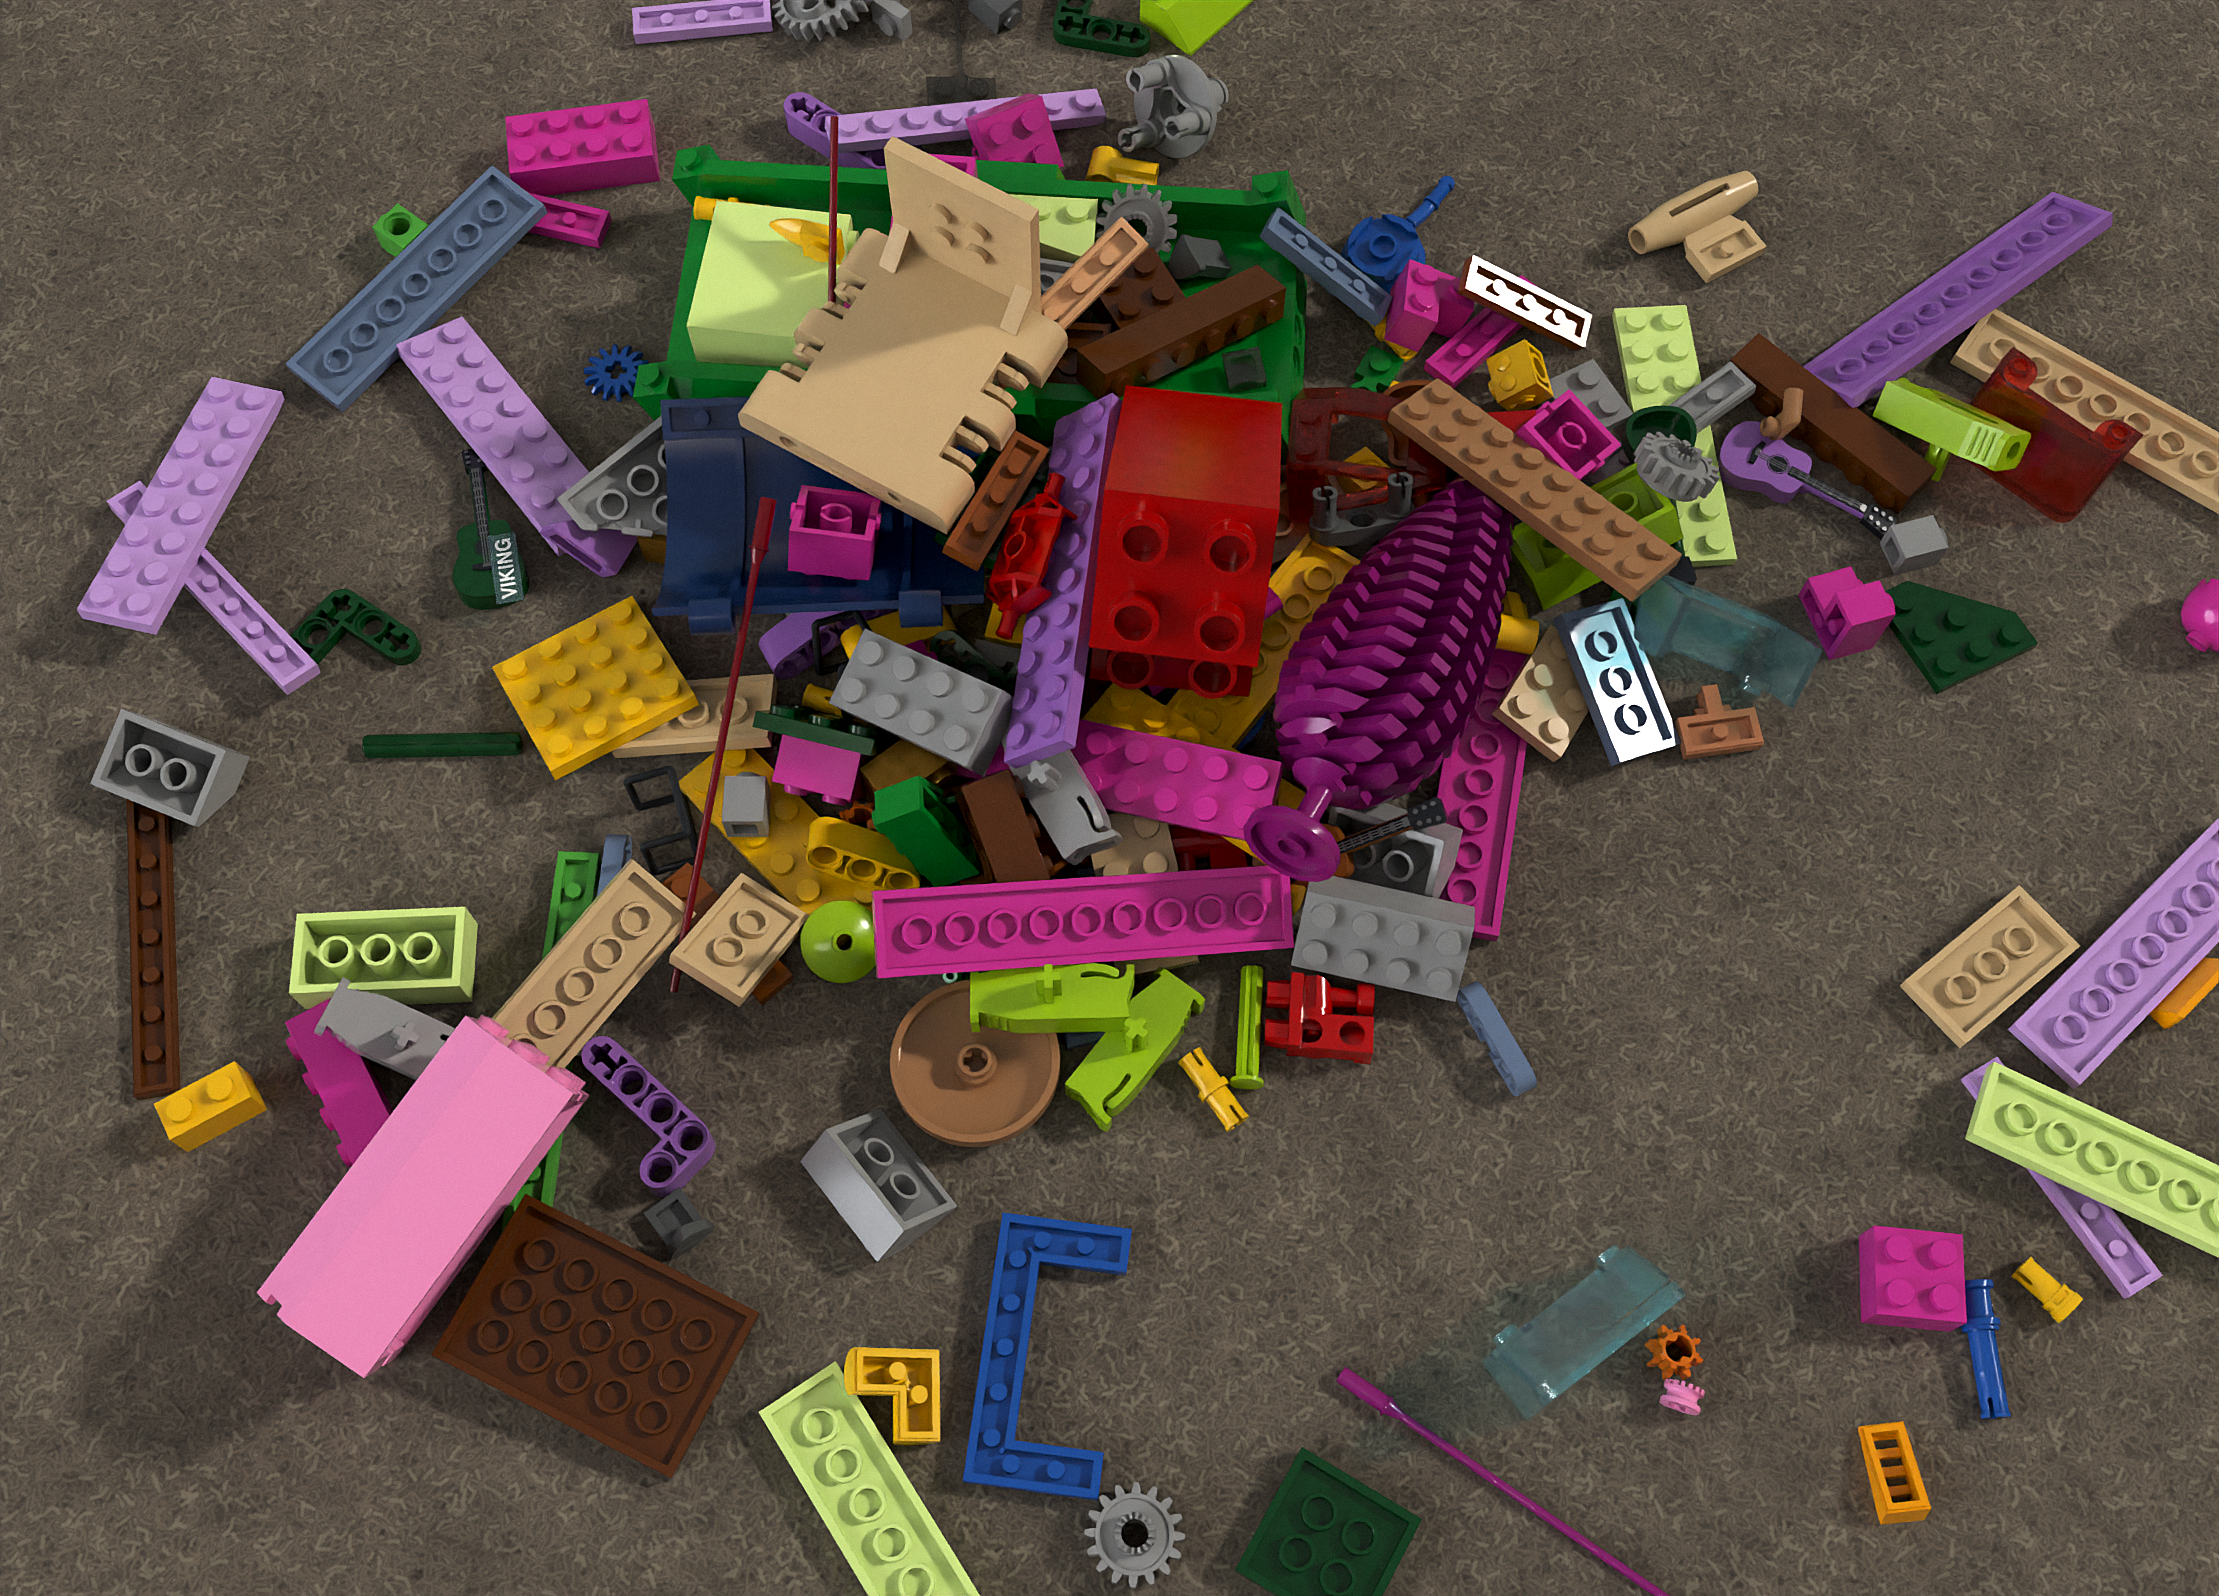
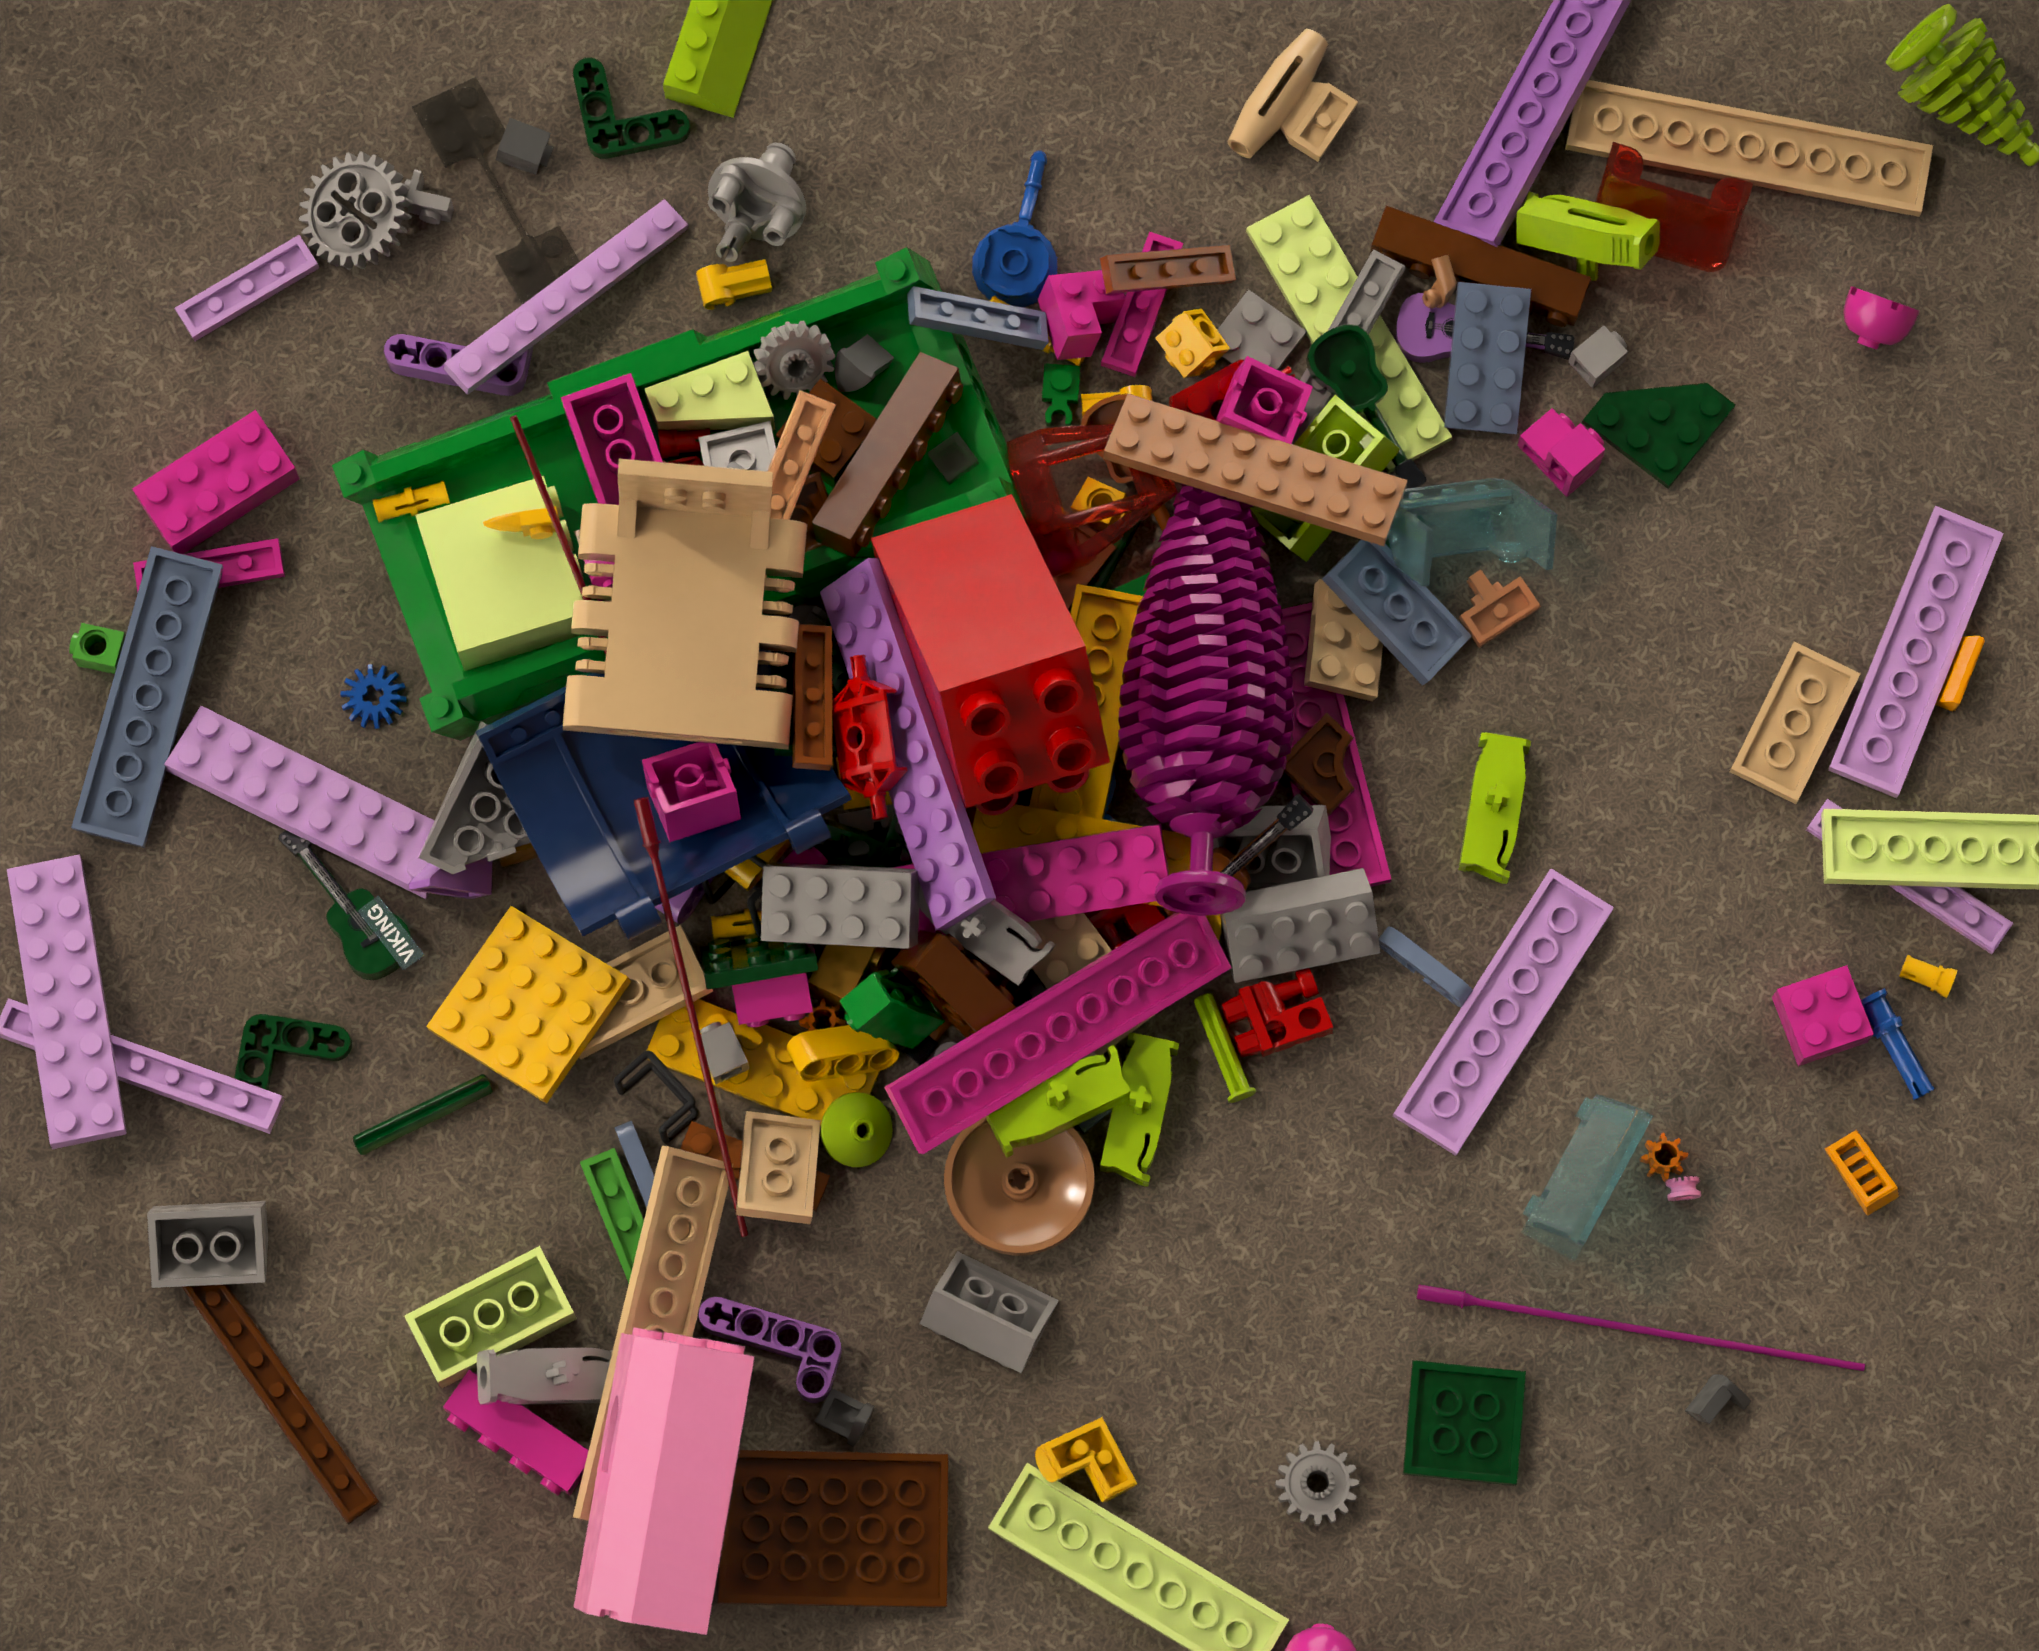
camera: 25 degrees left, 10 degrees up
(210, 1106) = (419, 1500): yellow brick -> none
(992, 1451) = (1179, 1472): blue plate -> none
(1015, 132) = (624, 302): dark pink brick -> none
(1213, 1089) = (1217, 1113): yellow pin -> none
(1362, 526) = (1120, 560): dark grey connector -> none
(1473, 794) = (1318, 765): none -> reddish brown tile
(1516, 630) = (1294, 598): yellow piece -> none
(1558, 1122) = (1503, 1012): none -> lavender plate
(1637, 912) = (1494, 805): none -> lime piece
(1675, 467) = (1368, 393): light grey gear -> none
(1802, 500) = (1487, 358): none -> sand blue plate

